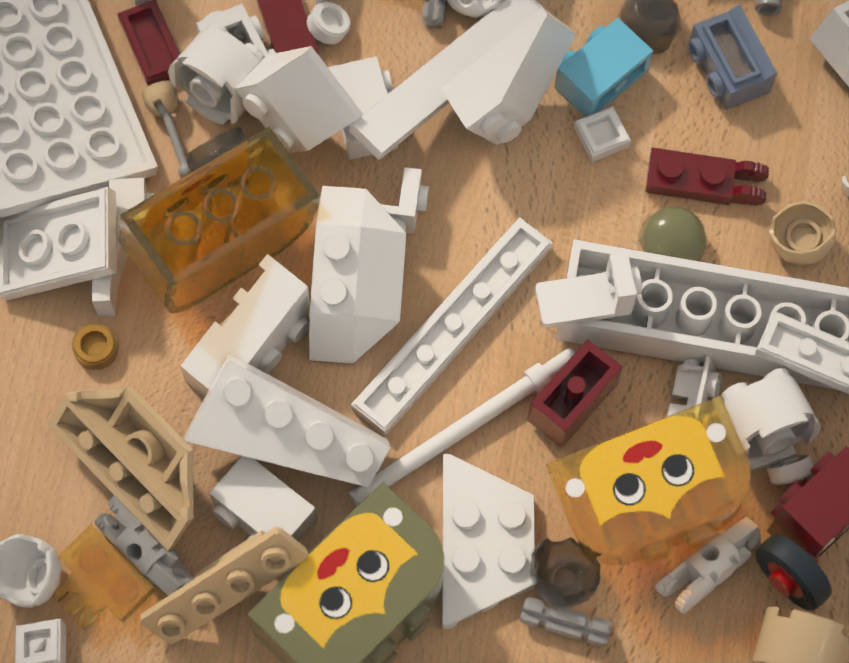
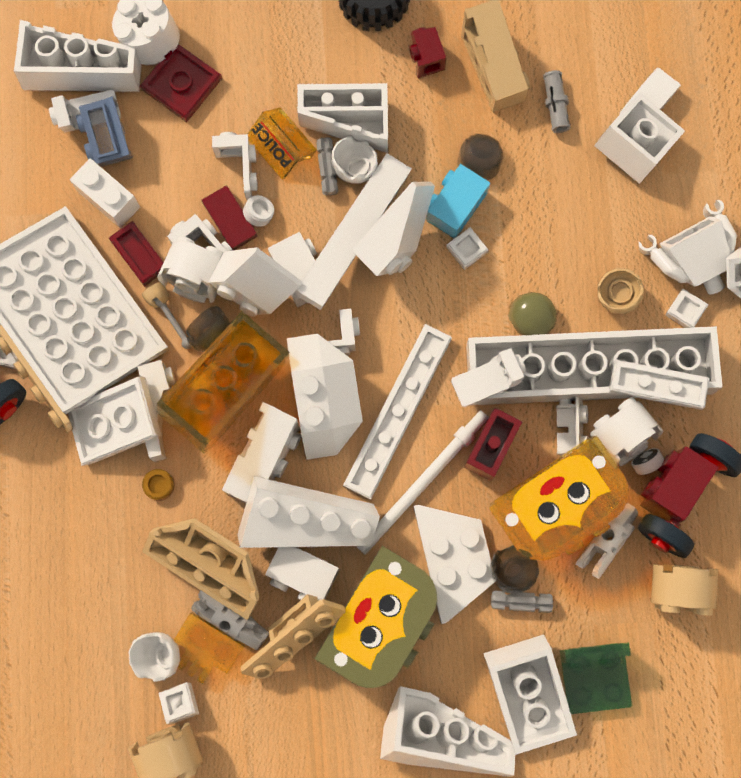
camera: 10 degrees left, 10 degrees up
(704, 177) = (543, 264): dark red hinge -> none
(732, 58) = (544, 172): sand blue window -> none

